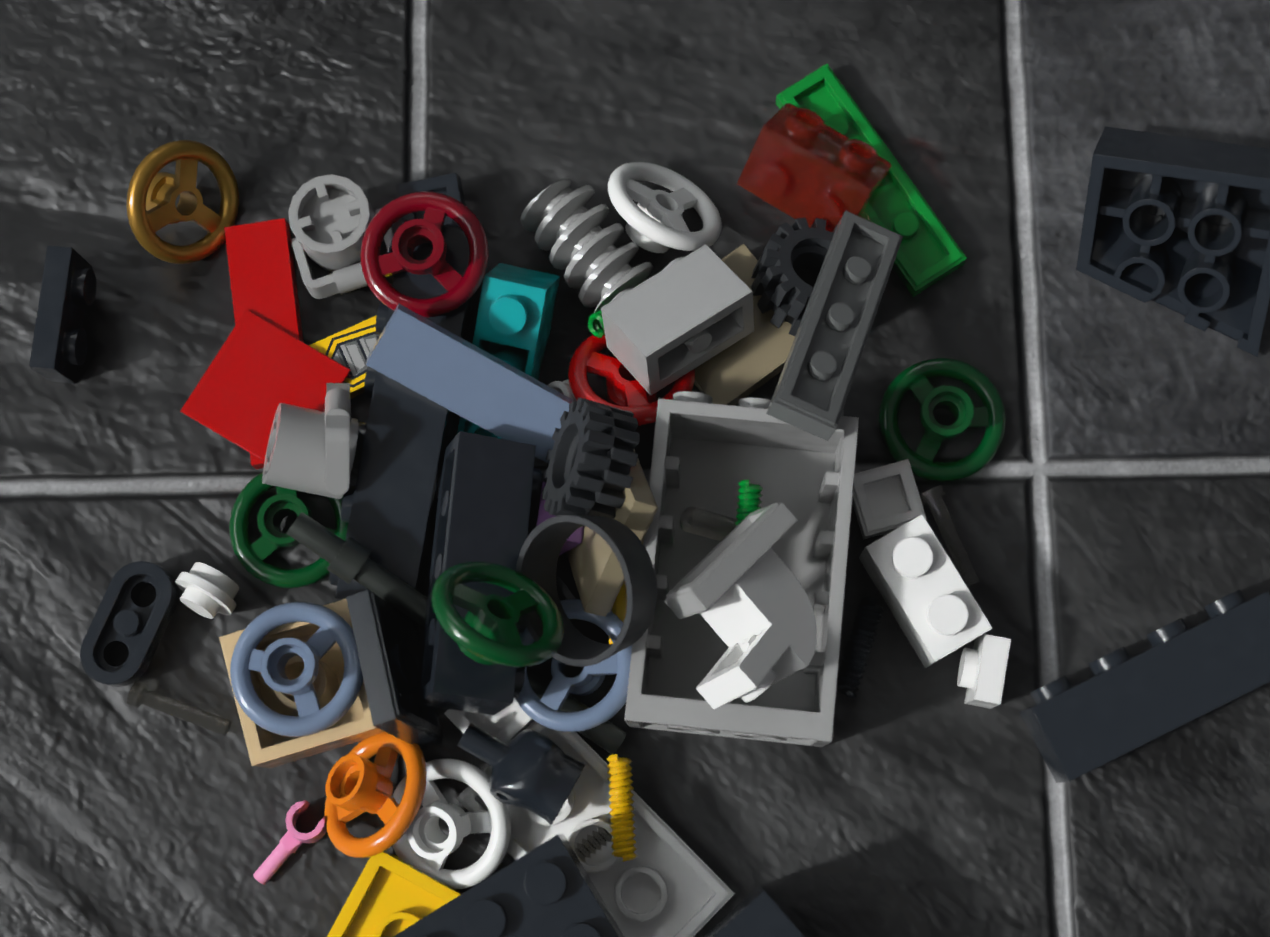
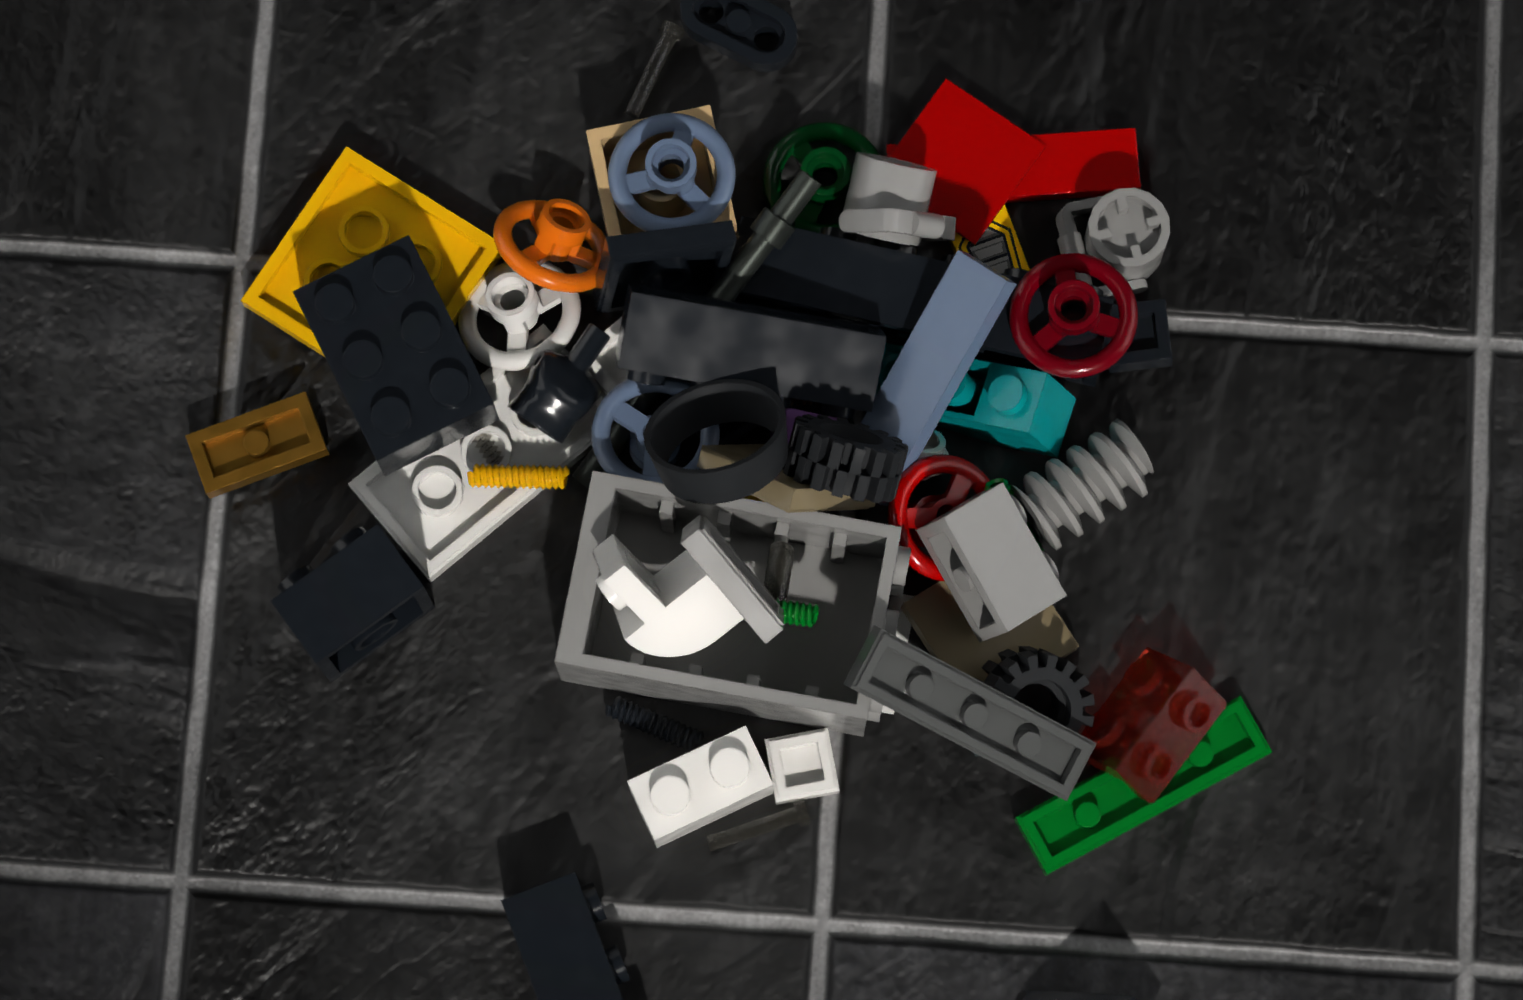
camera: 85 degrees right, 0 degrees up
(154, 194) = (1171, 74): pearl gold piece -> none
(207, 590) = (763, 98): white plate -> none
(289, 842) = (517, 166): bright pink hand -> none
(489, 628) = (688, 347): dark green piece -> none
(657, 217) = (1108, 556): white piece -> none
(955, 400) = (922, 809): dark green piece -> none
(984, 670) = (618, 838): white plate -> none

